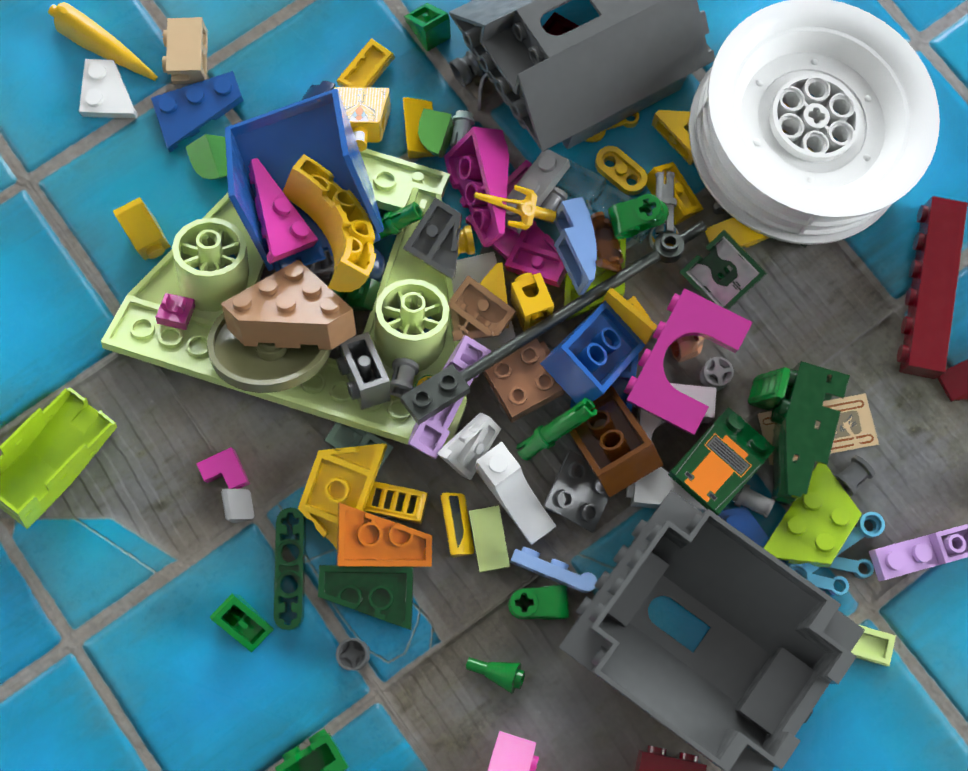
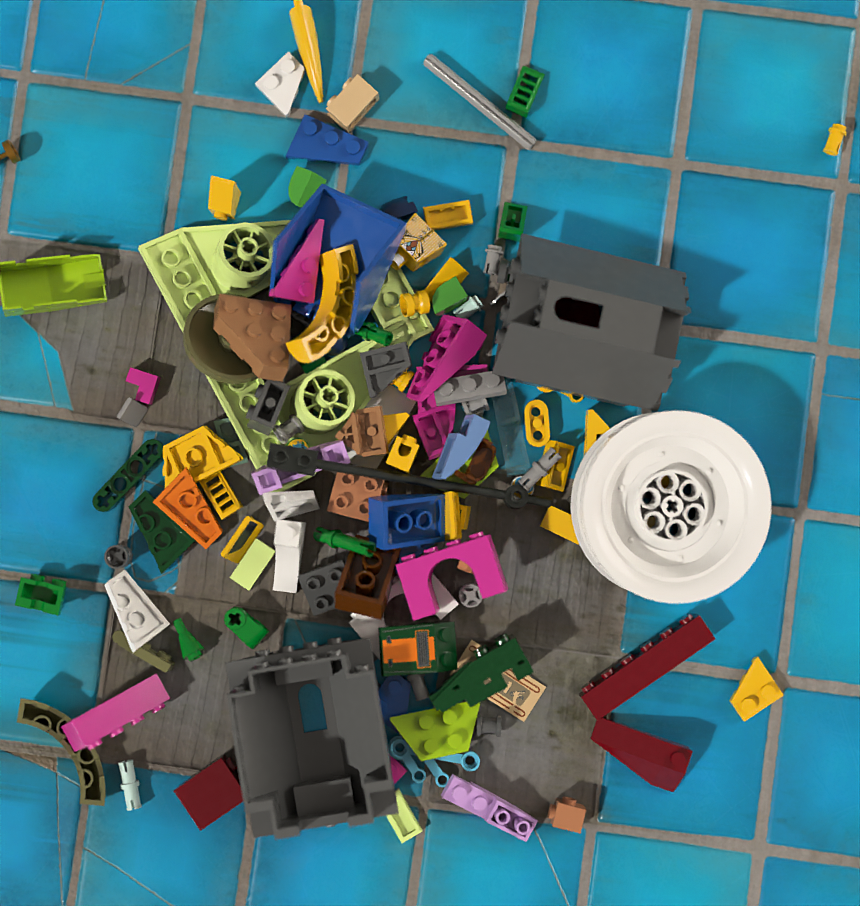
camera: 45 degrees right, 10 degrees up
(175, 311) = (198, 265): dark pink tile -> none
(241, 621) = (75, 481): green slope -> none
(410, 162) = (414, 303): none -> yellow wheel
(418, 690) = (134, 610): none -> white wing
(437, 64) = (492, 259): none -> light grey pin
(462, 723) = (158, 659): none -> olive hinge
(525, 208) = (450, 398): yellow piece -> none
(555, 570) = (270, 617): light blue plate -> none
(632, 216) = (511, 461): green piece -> none
(735, 283) = (523, 546): piece -> none
(769, 388) = (488, 632): green slope -> none

